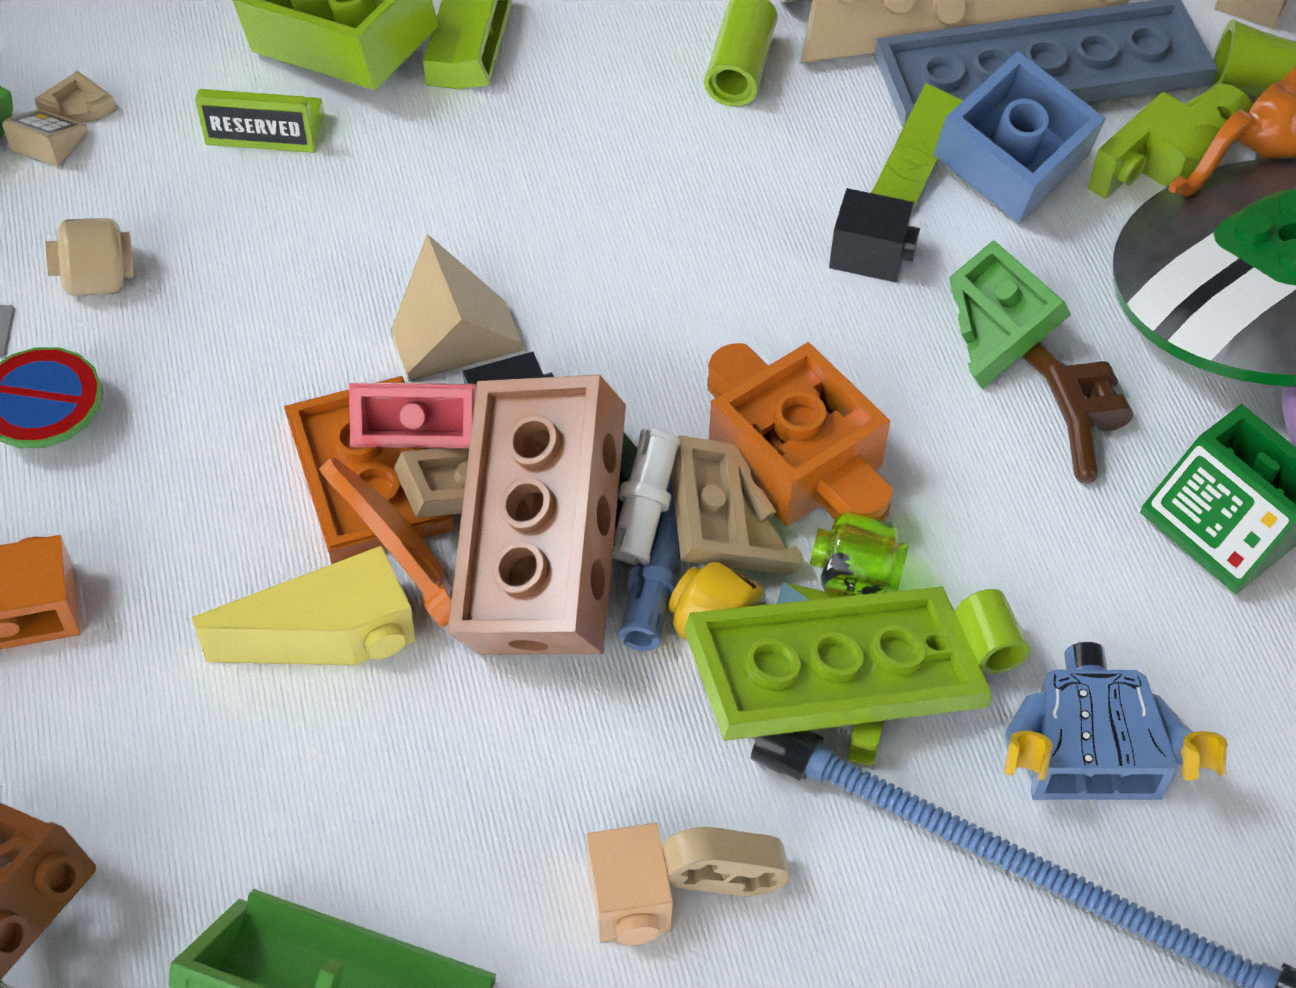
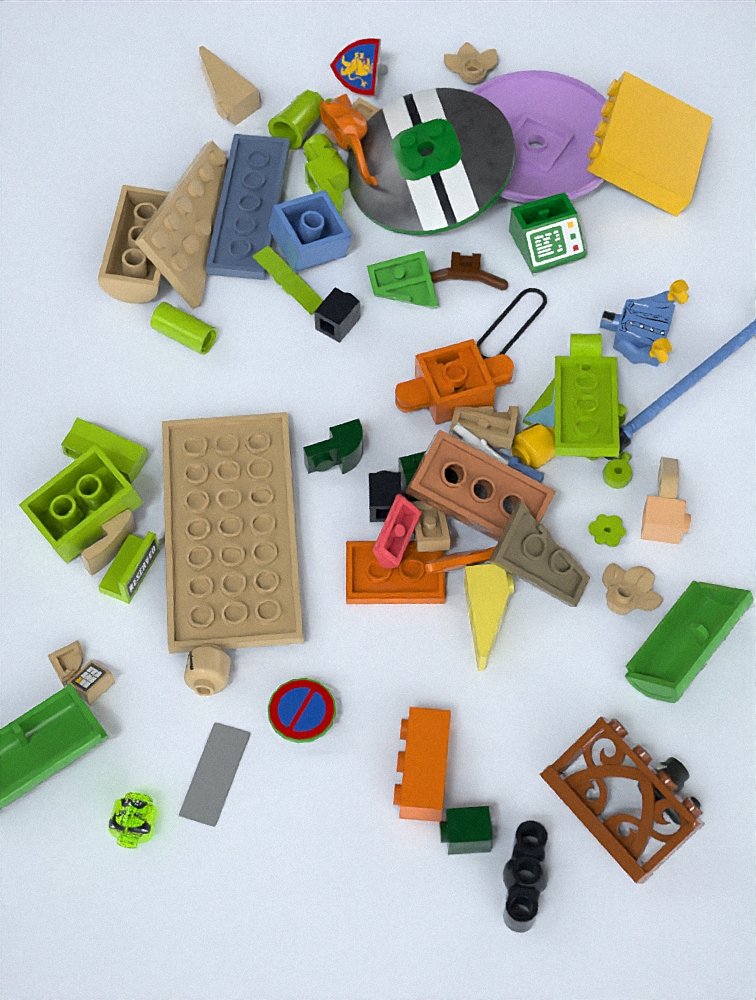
camera: 70 degrees left, 5 degrees up
(302, 74) = (105, 550): none -> tan slope
(339, 219) = (230, 533): none -> tan plate
(430, 657) = (537, 559): none -> dark tan wing
(449, 317) = (316, 512): tan slope -> none
(456, 872) = (630, 589): none -> tan plate
(576, 775) = (612, 525): none -> lime plant
(587, 319) = (341, 449): none -> dark green brick
(739, 782) = (618, 472): none -> lime piece
(859, 555) = (529, 381): clear neon green head -> none
(997, 532) = (508, 309): none -> black piece

